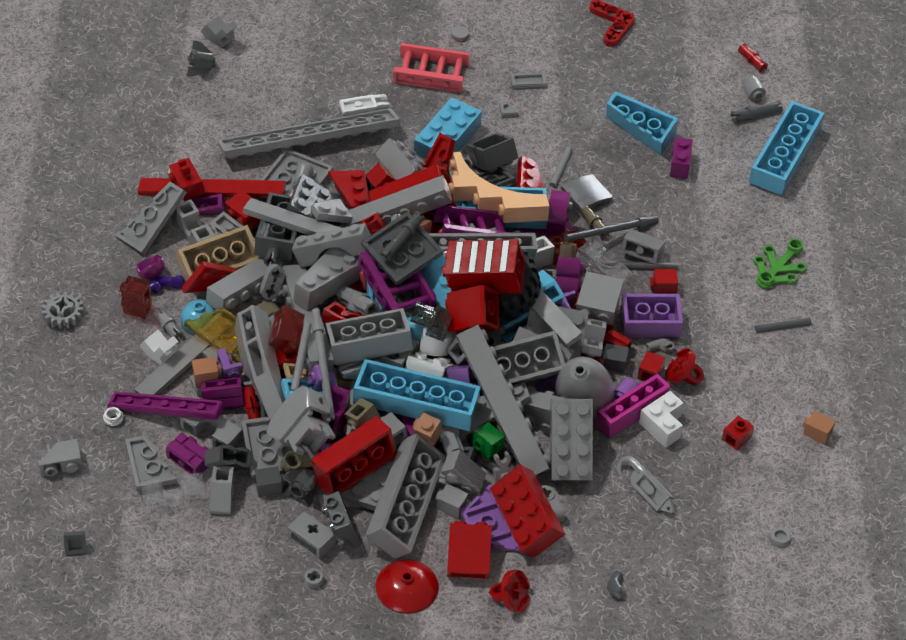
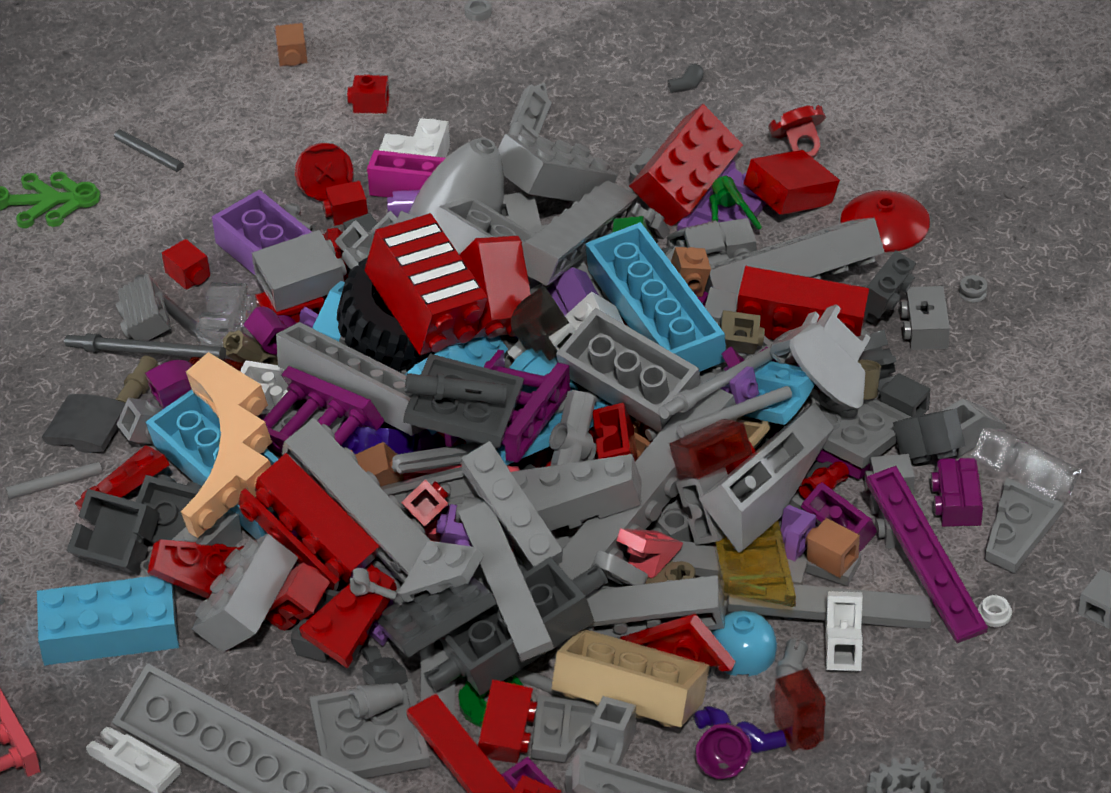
camera: 125 degrees left, 5 degrees down
(275, 298) = (649, 549): none -> coral slope
(356, 188) = (361, 585): none -> light grey hand
(487, 512) = (727, 195): none -> green plant

